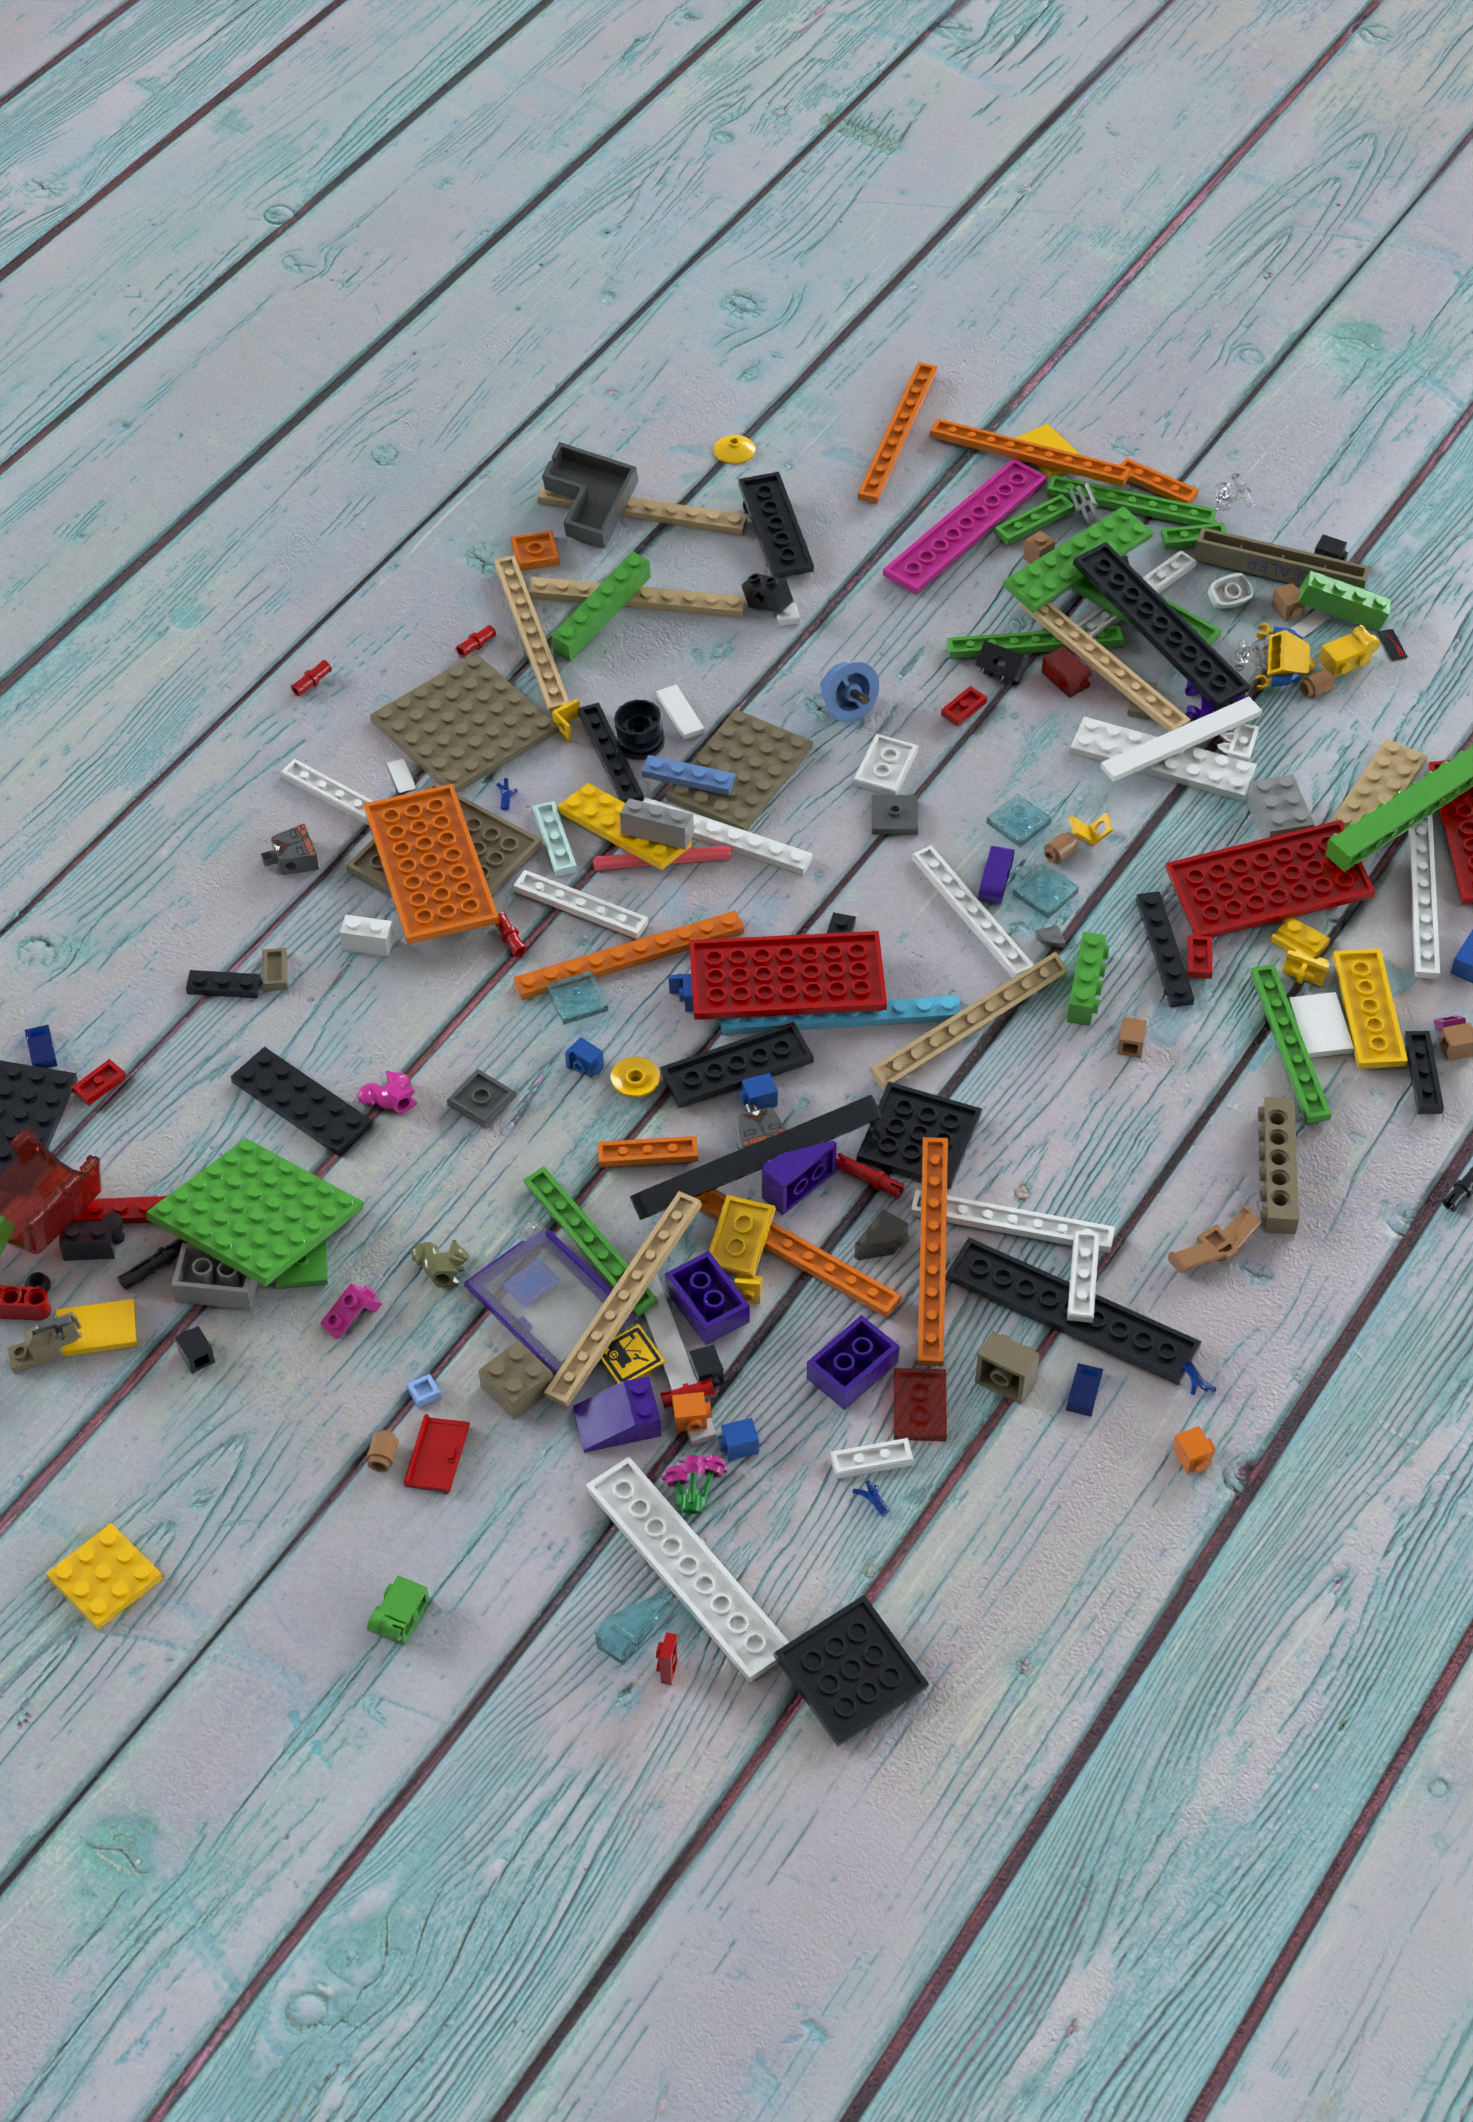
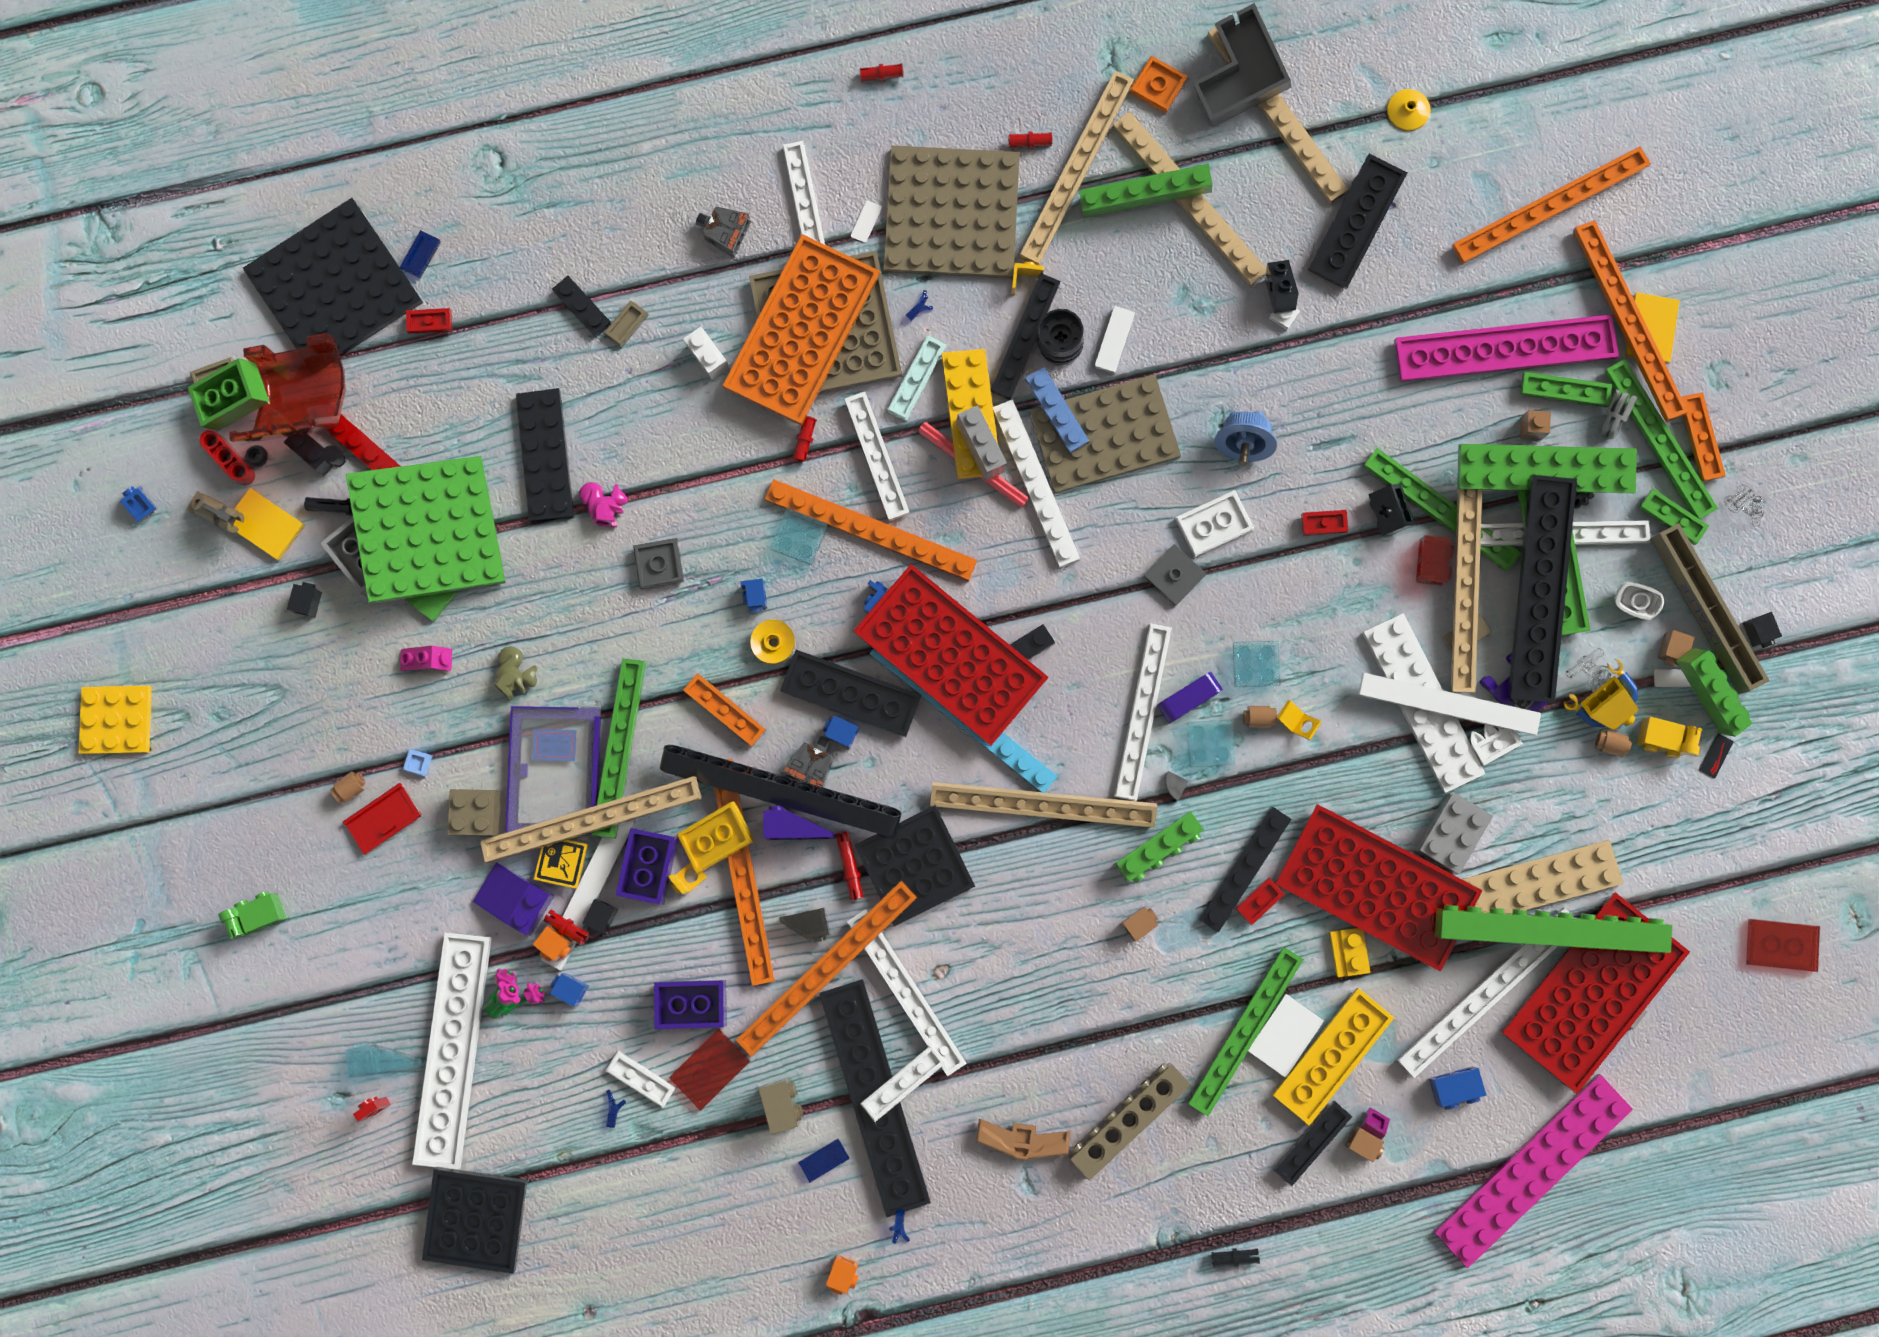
camera: 45 degrees right, 30 degrees up
(1305, 968) = (1321, 982): yellow hips -> none

